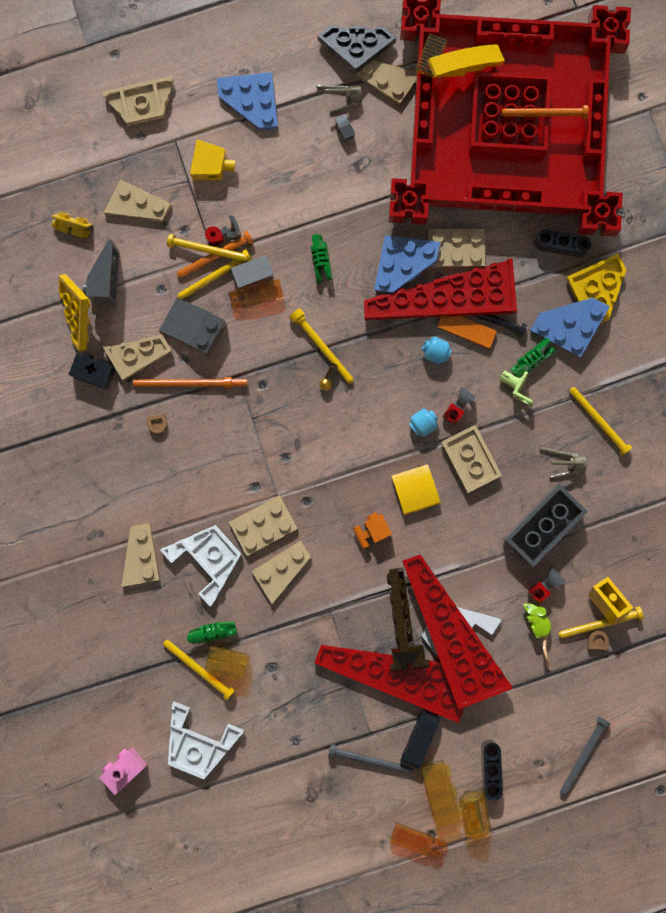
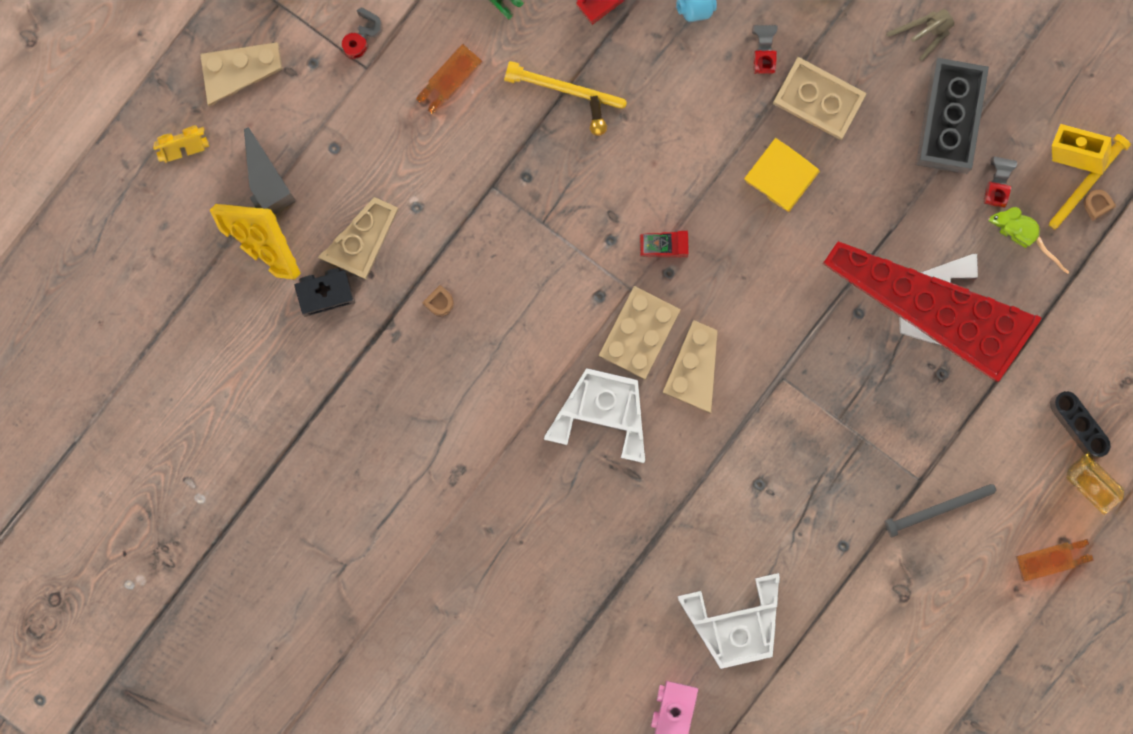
camera: 40 degrees left, 0 degrees up
(141, 557) = (527, 463): tan wing -> none
(173, 241) = (311, 83): yellow bar -> none
(193, 326) = (402, 164): dark grey slope -> none
(199, 670) = (683, 542): yellow bar -> none
(209, 258) = (392, 23): orange bar -> none
(211, 277) = (406, 45): yellow bar -> none
(212, 632) = (666, 489): green hinge -> none
(226, 662) = (706, 511): clear yellow brick -> none
(227, 382) = (486, 201): orange bar -> none
(252, 271) = (427, 56): light grey hinge -> none
(315, 482) = (664, 244): none -> leg
(376, 528) = (768, 248): orange brick -> none
(407, 650) = (899, 358): dark brown hinge -> none
(420, 687) = (917, 390): red wing -> none
(420, 740) = (979, 447): black beam -> none
(423, 422) = (738, 94): medium azure head -> none
(441, 793) = (1043, 488): clear yellow brick -> none

